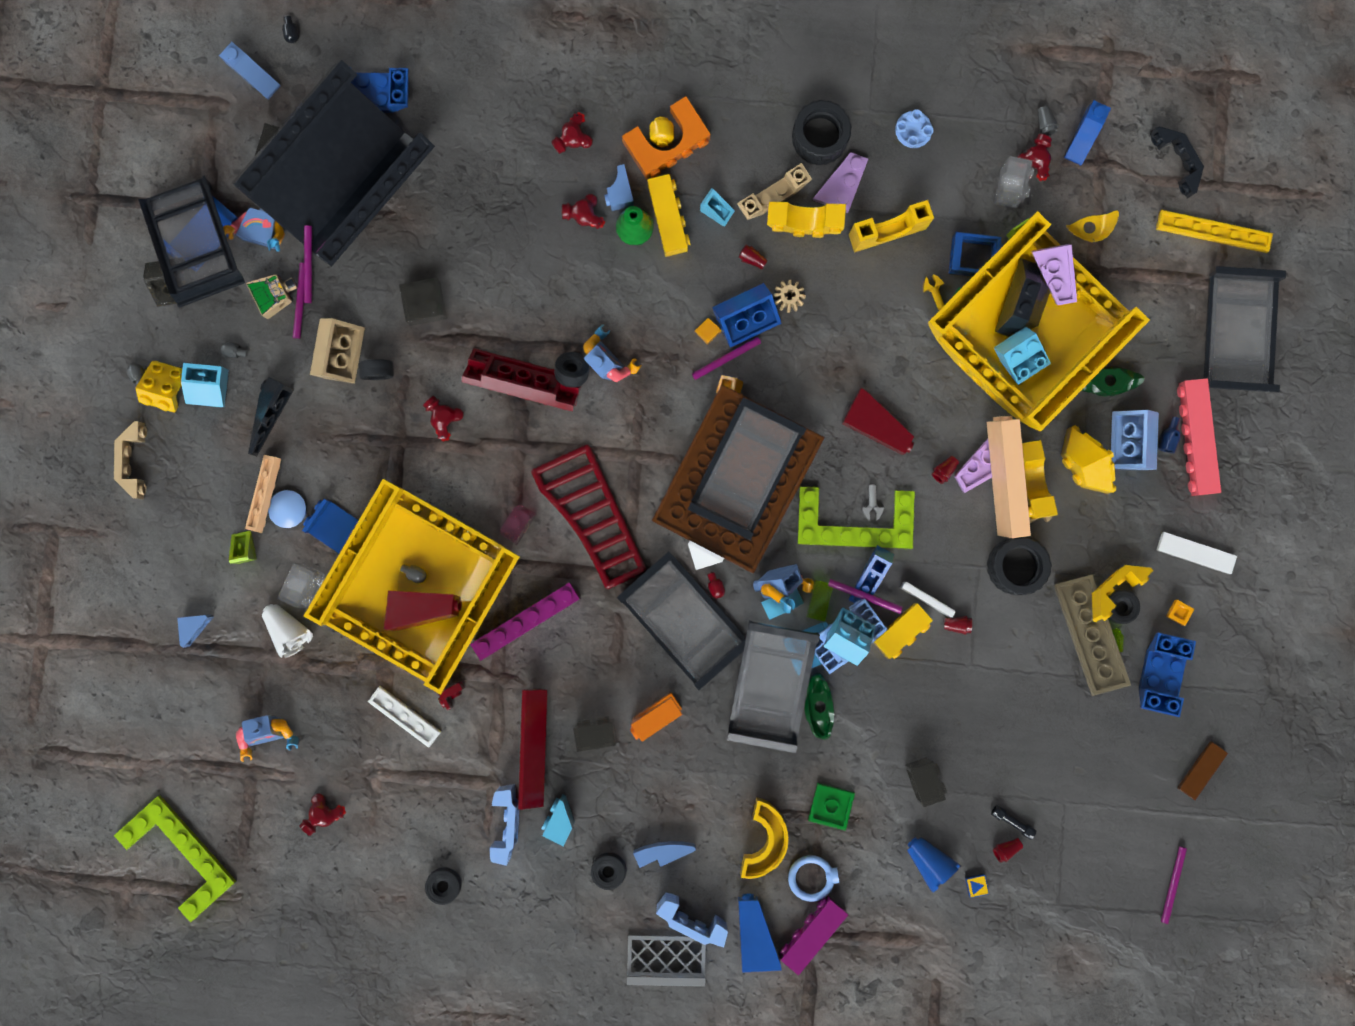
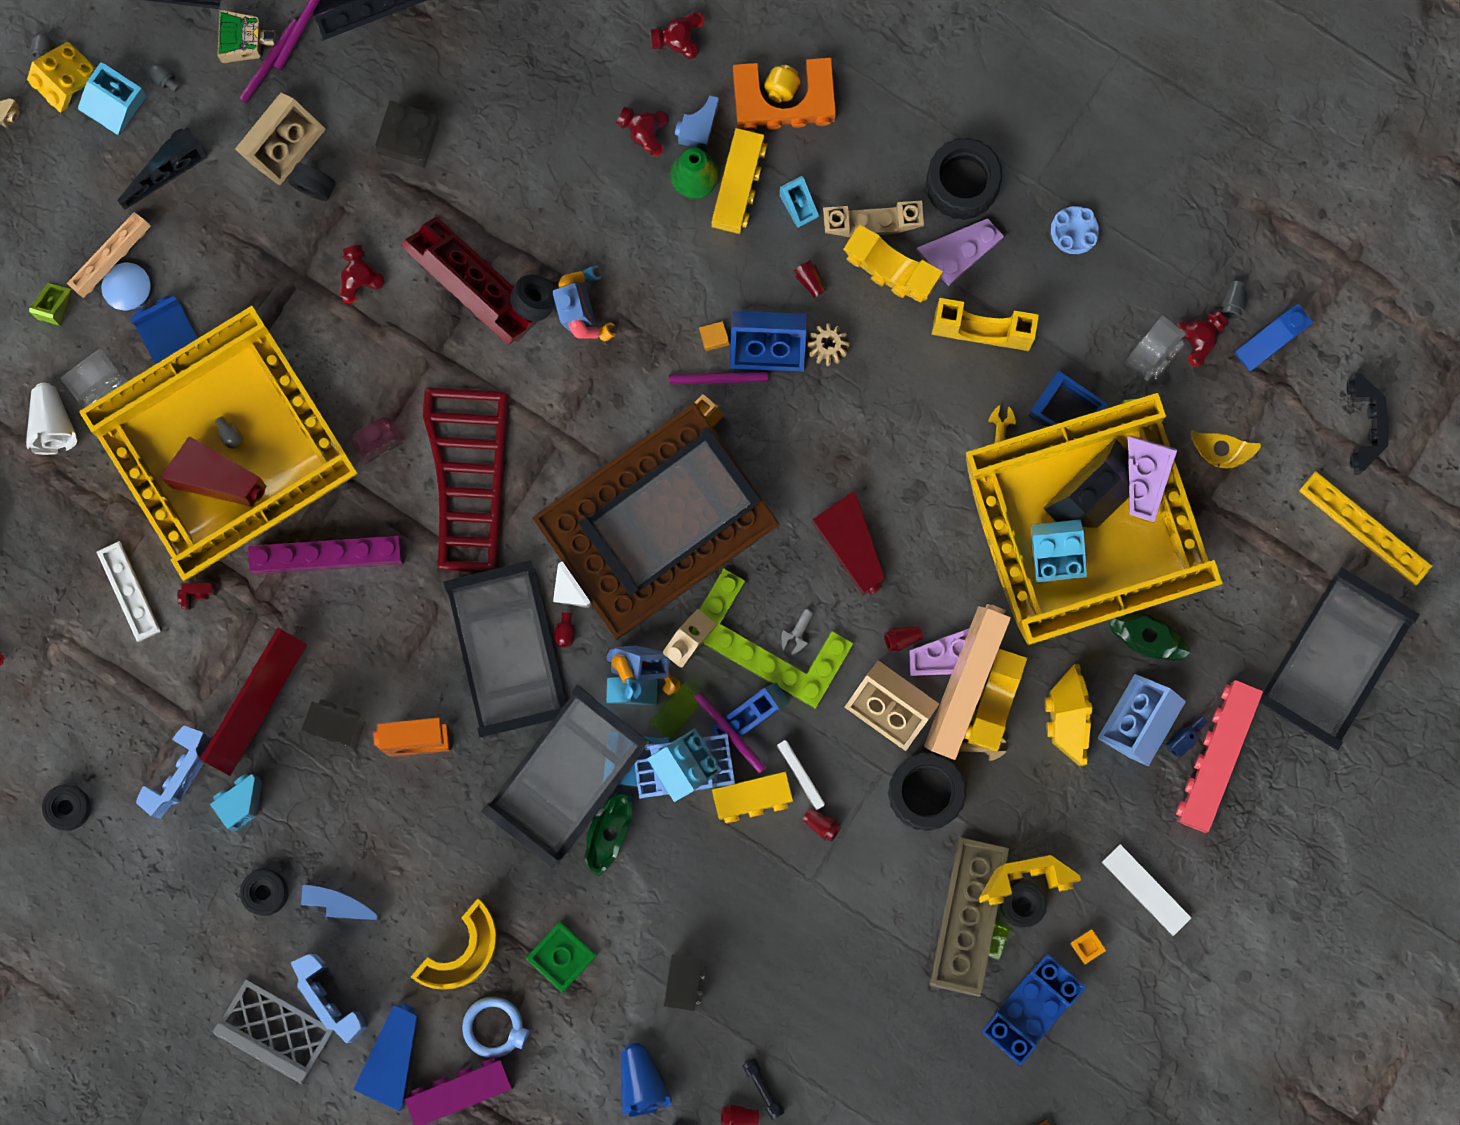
camera: 30 degrees right, 5 degrees down
(803, 554) = (686, 645): none -> tan torso
(963, 519) = (891, 705): none -> tan slope

